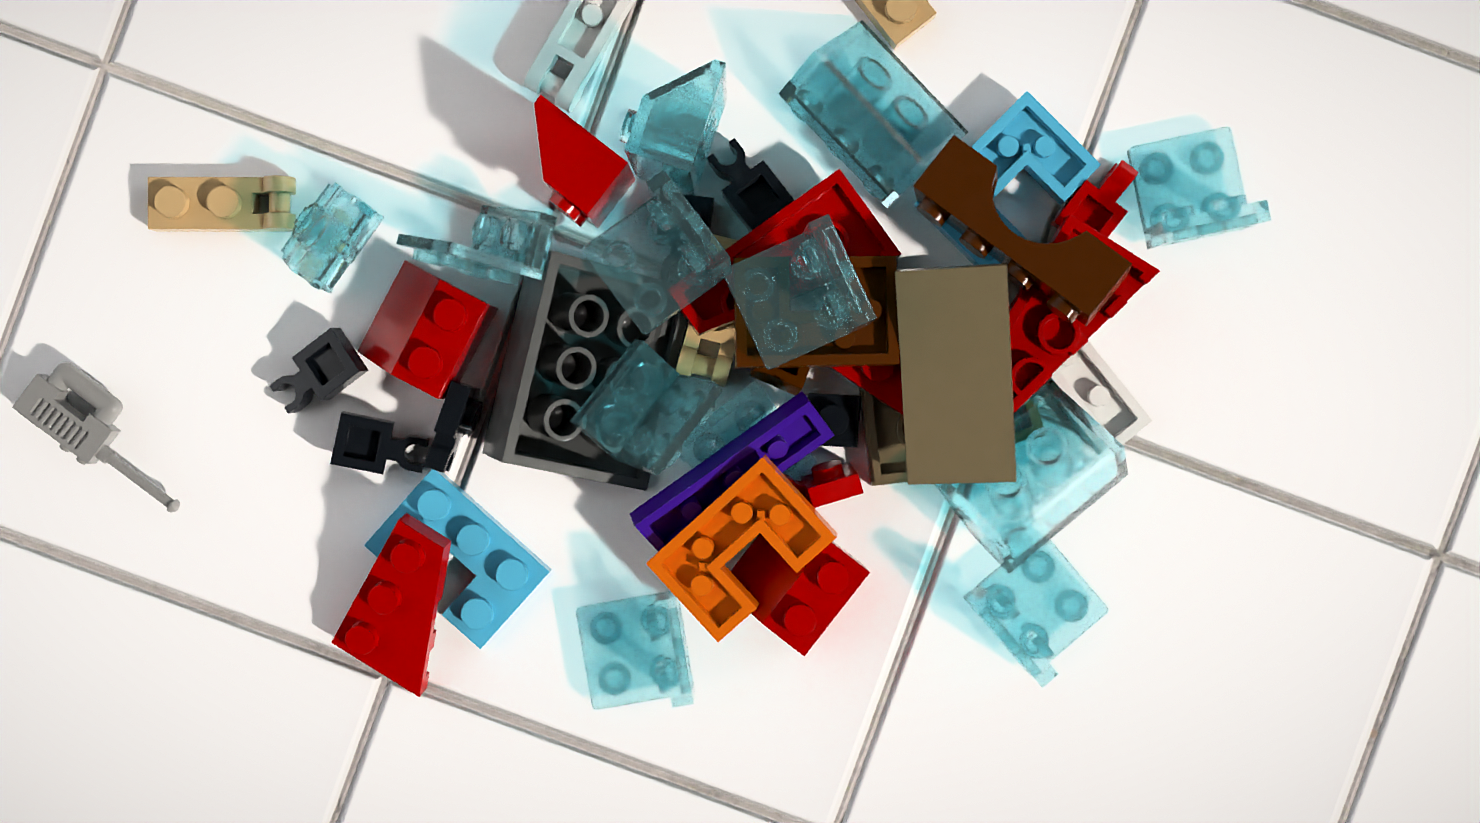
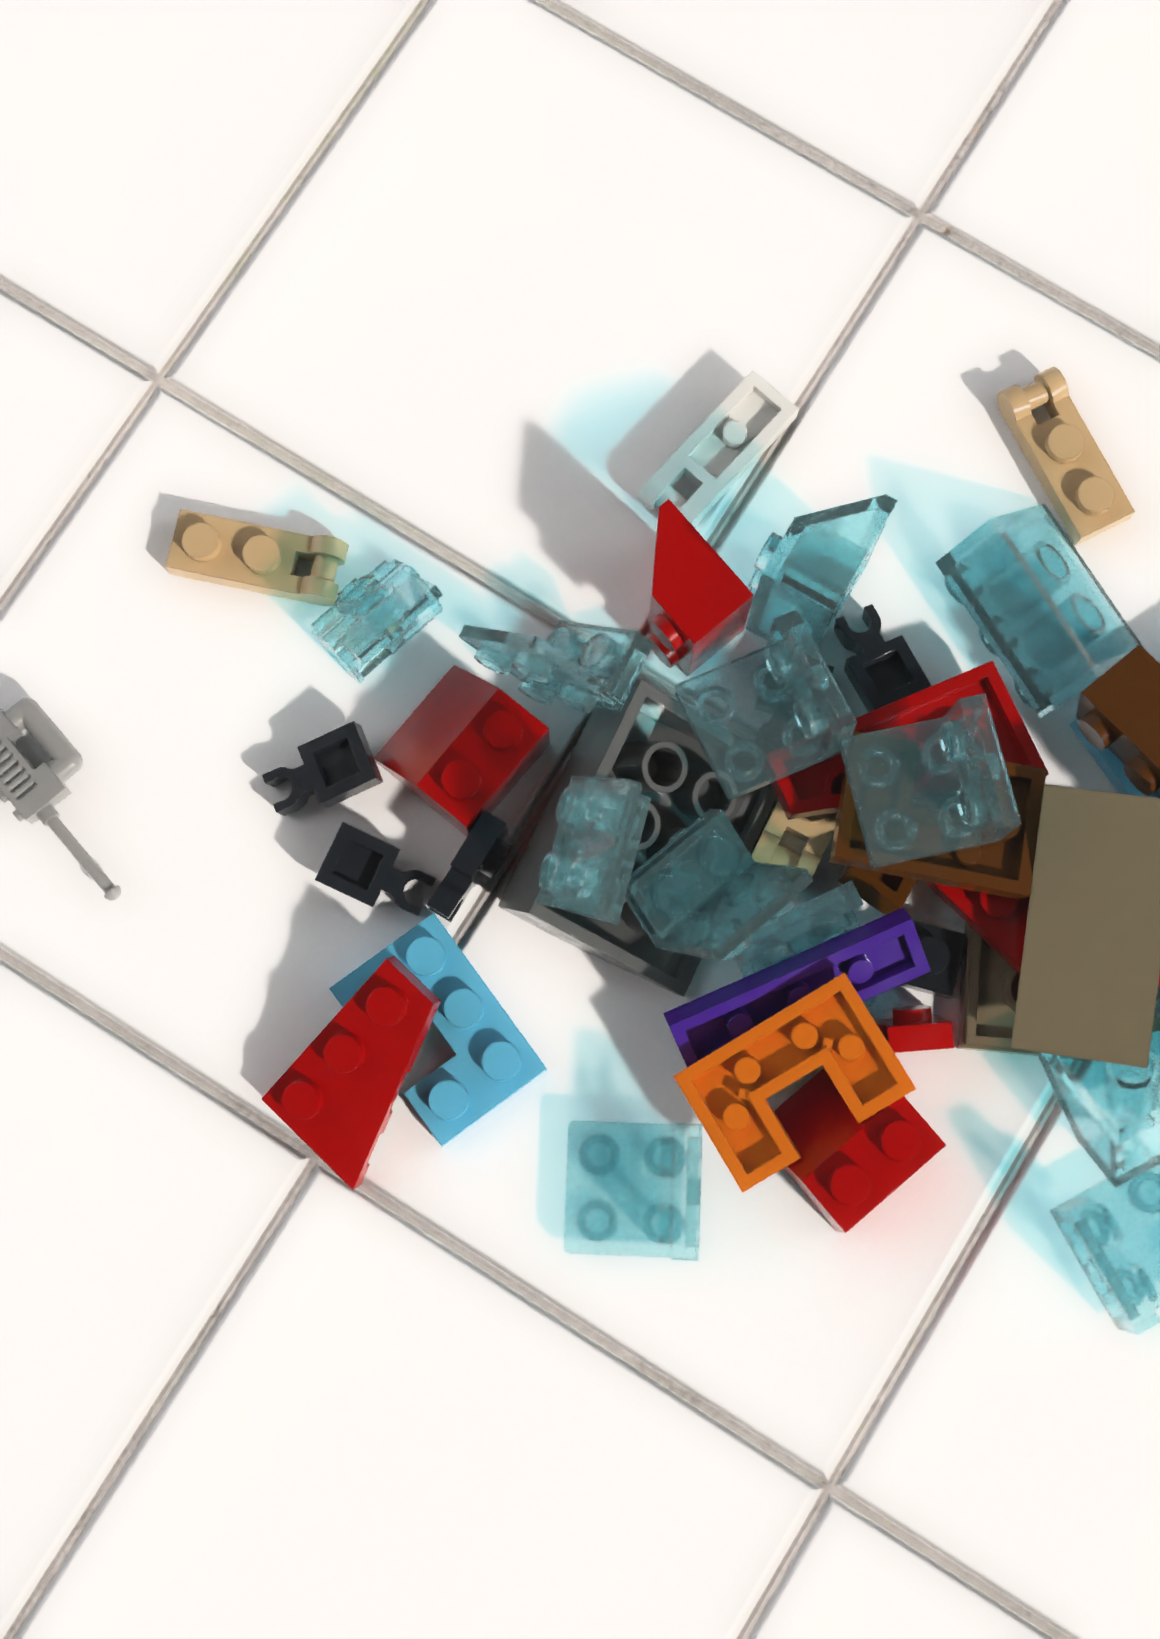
camera: 15 degrees right, 10 degrees down
(541, 402) = (594, 847): none -> clear light blue bracket

